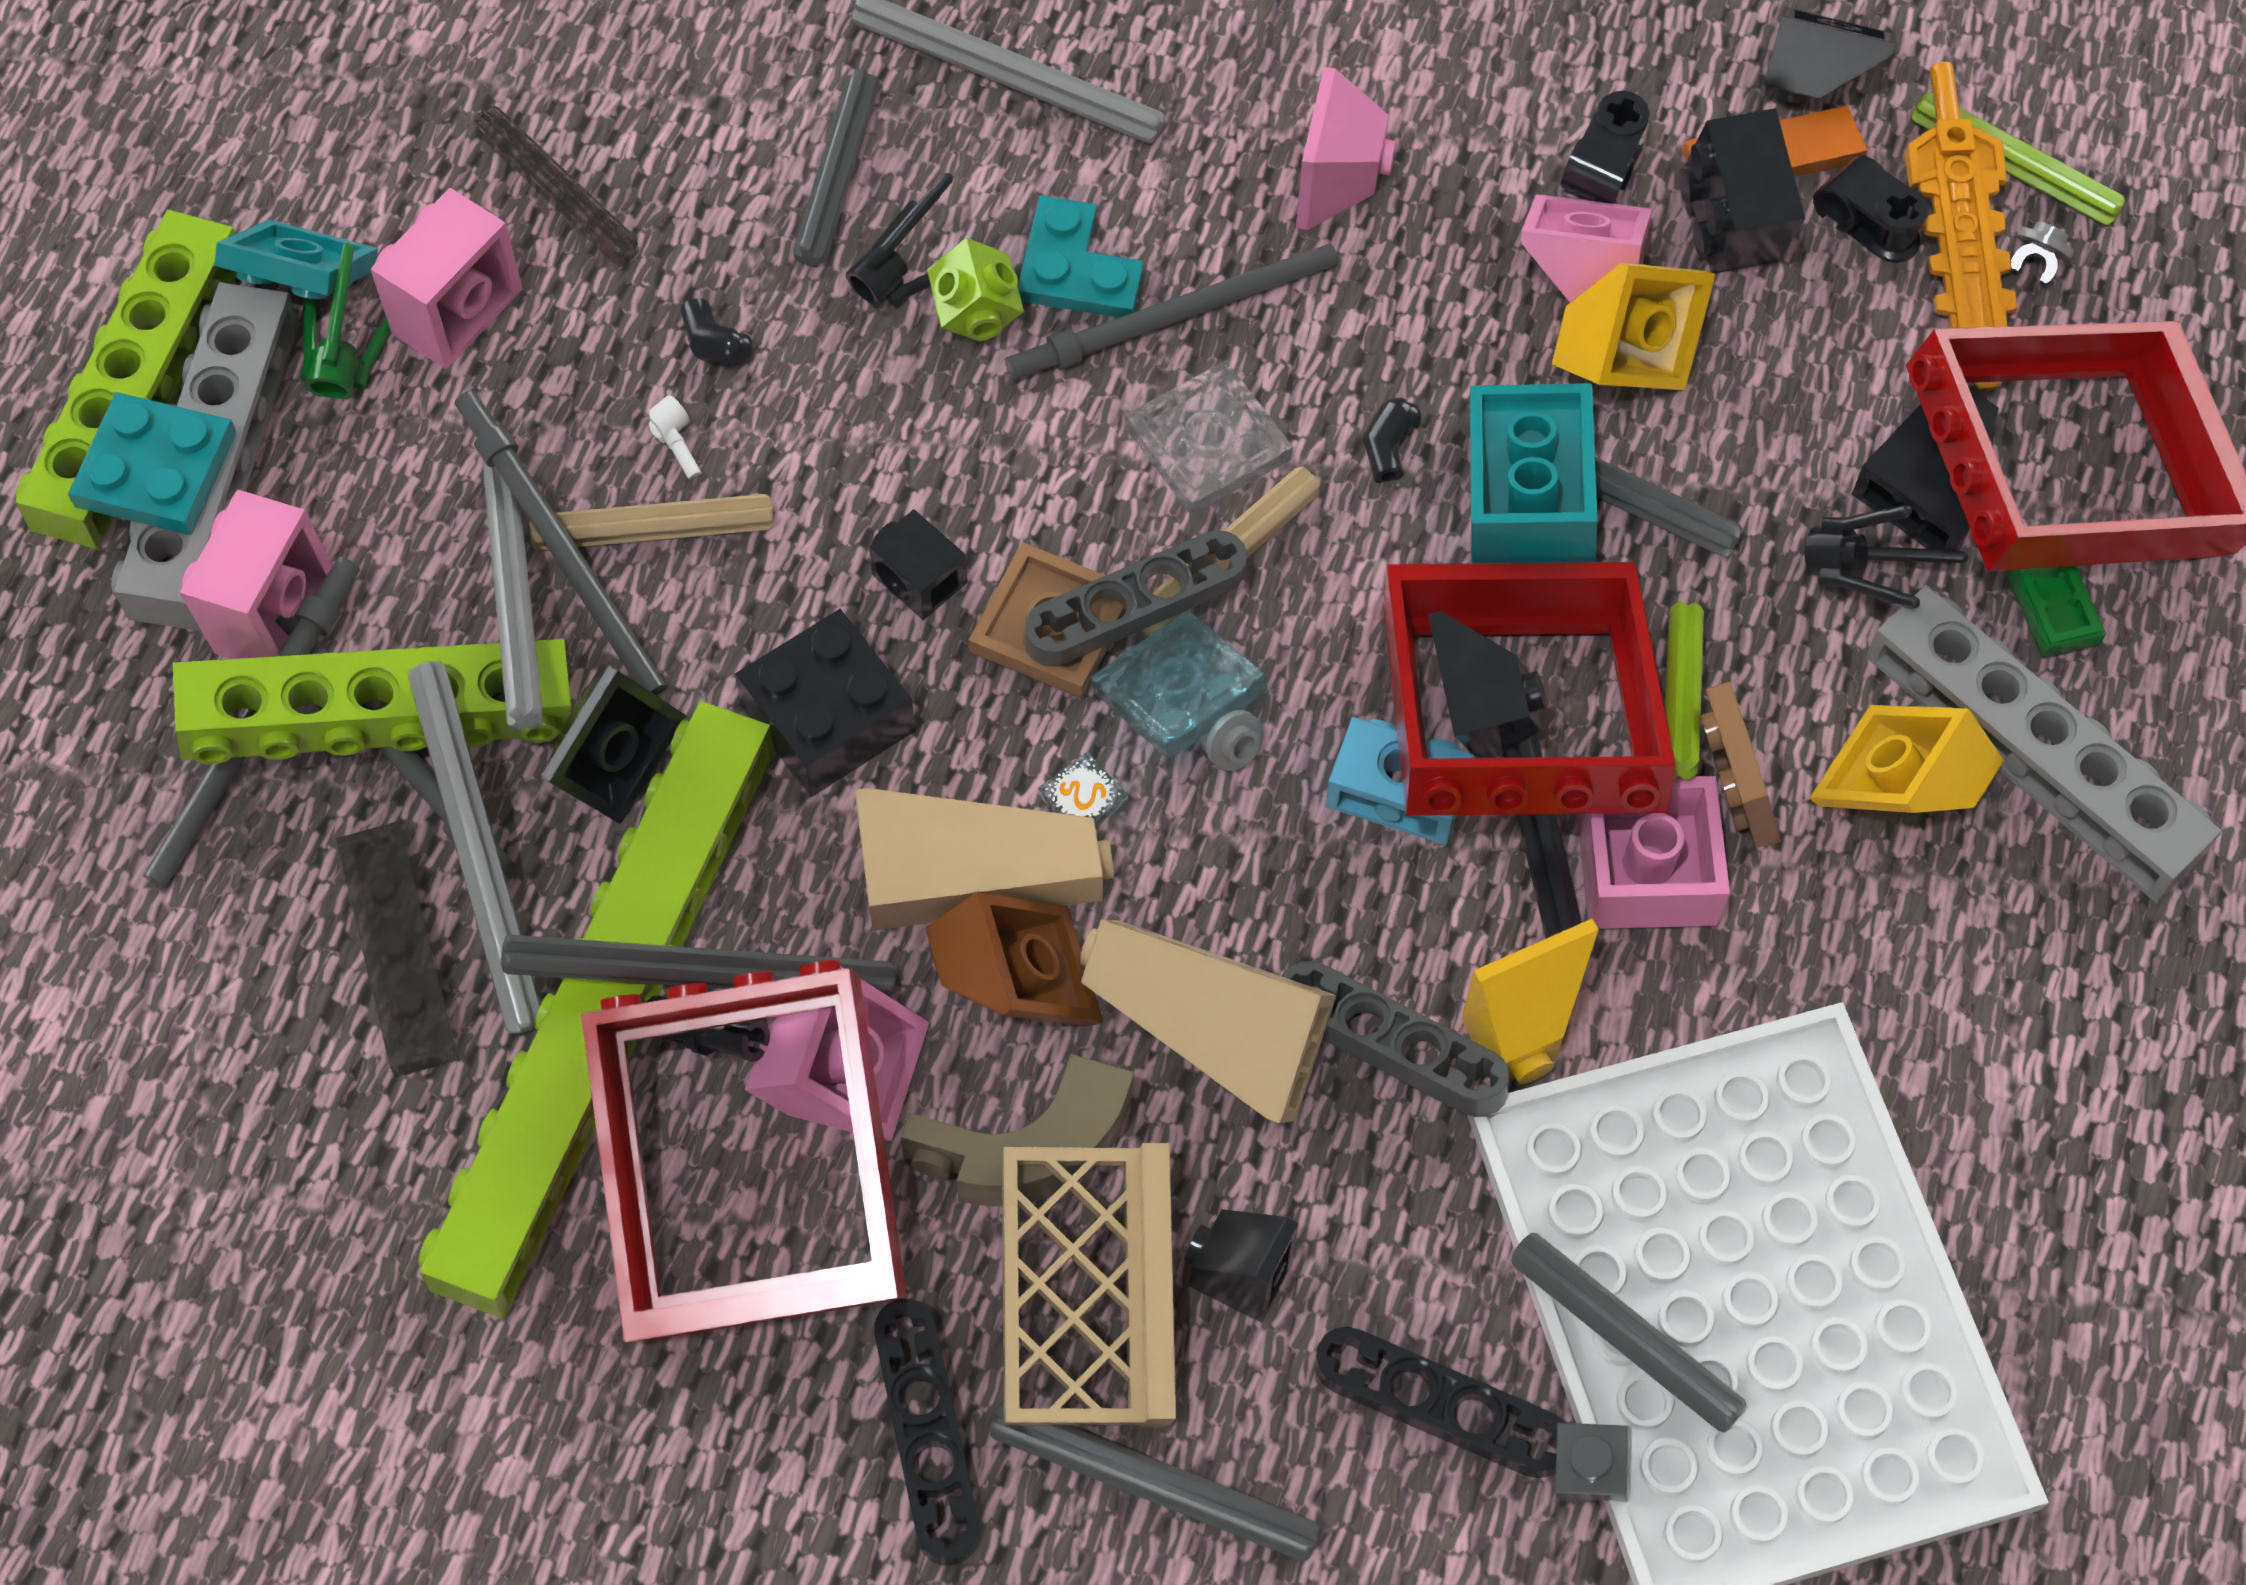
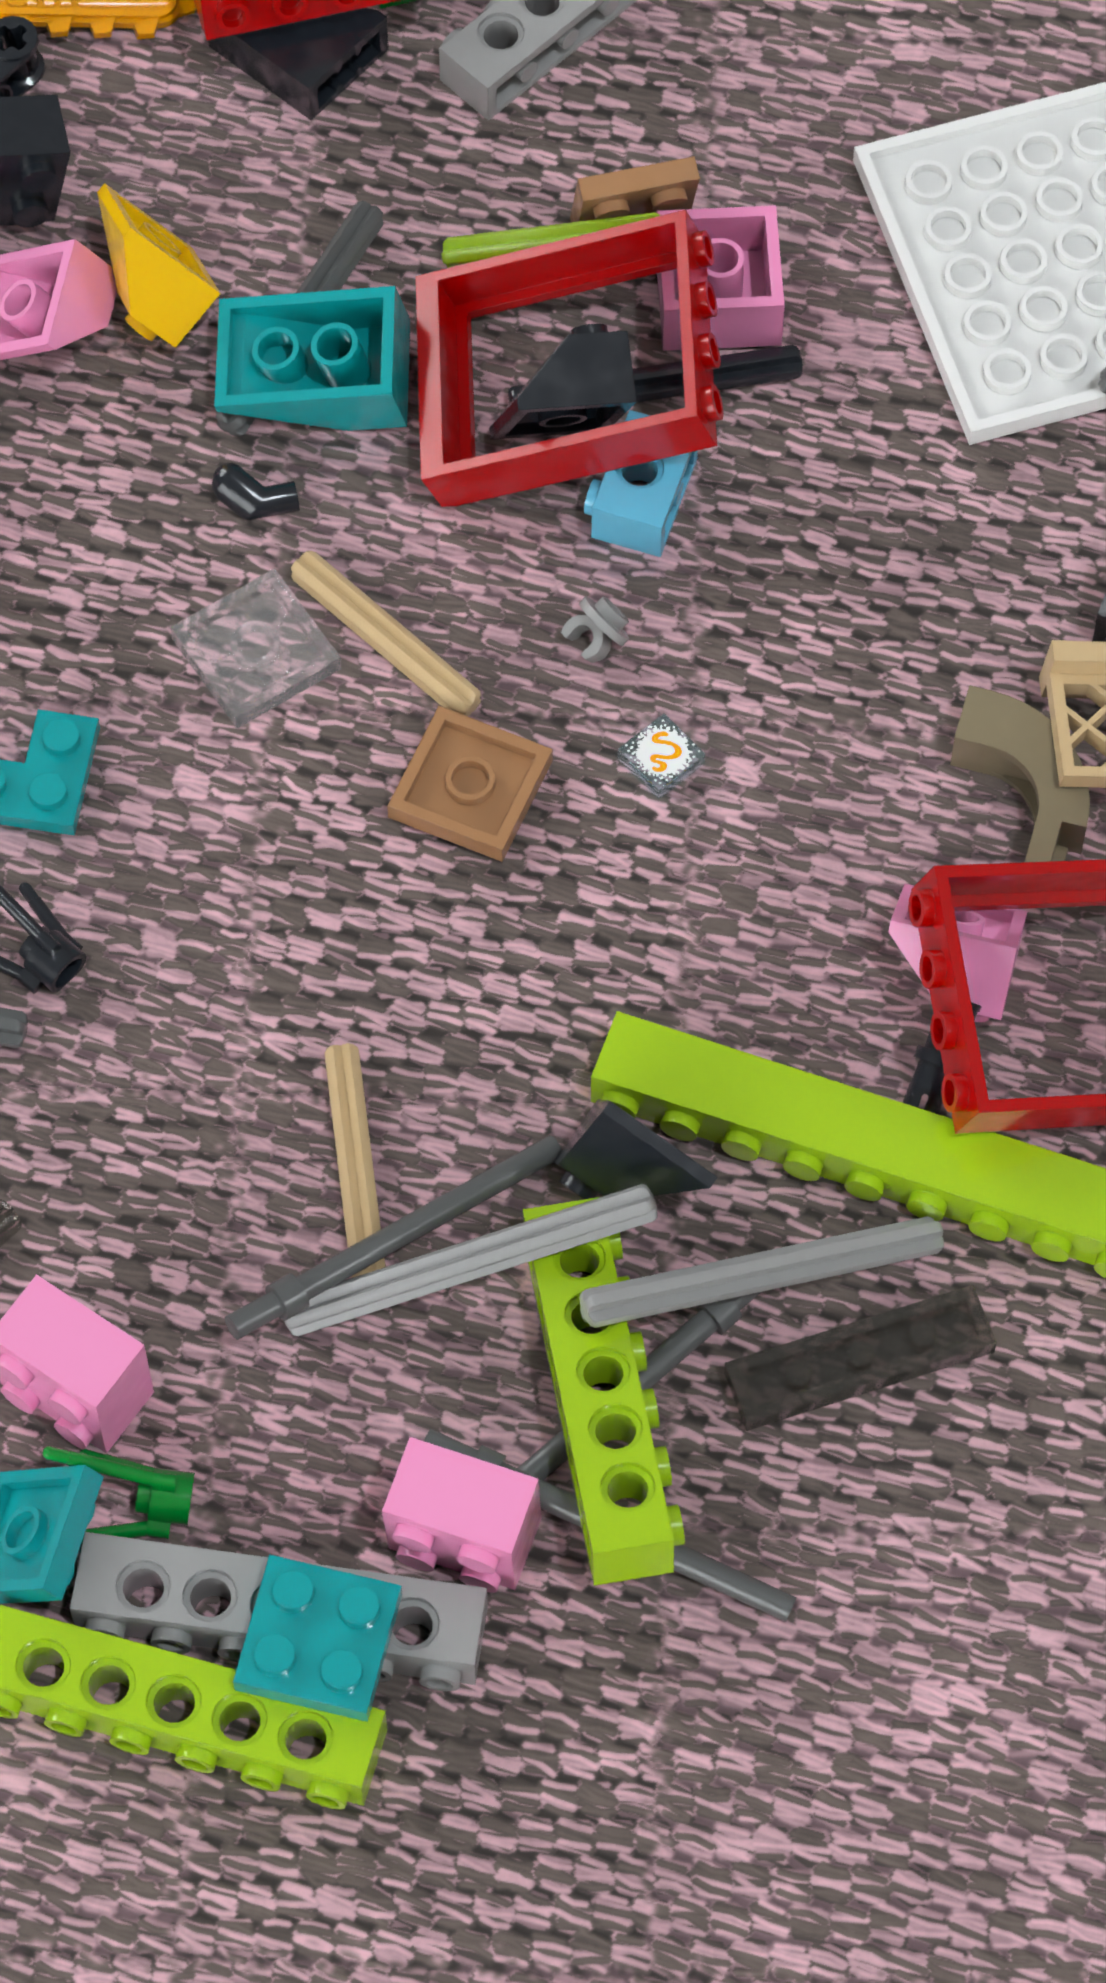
camera: 90 degrees left, 0 degrees up
(665, 422) = (232, 1159): white hand -> none
(665, 963) = (888, 1058): dark grey axle -> none
(713, 341) = (129, 1120): black arm -> none
(826, 702) = (575, 971): black brick -> none
(917, 563) = (411, 901): black brick -> none
(938, 851) = (745, 854): tan slope -> none
(975, 290) = (87, 854): lime brick -> none
(1014, 958) = (854, 802): dark orange slope -> none
(1067, 347) = (140, 777): dark grey bar -> none
(1130, 589) = (453, 698): dark grey beam -> none
(1178, 684) = (548, 664): clear light blue plate -> none
(1221, 1015) = (898, 623): tan slope -> none
(1399, 1029) = (916, 493): dark grey beam -> none
(1526, 1001) = (877, 374): yellow slope -> none
(1837, 551) = (388, 120): black plant -> none
(1911, 762) = (616, 86): yellow slope -> none

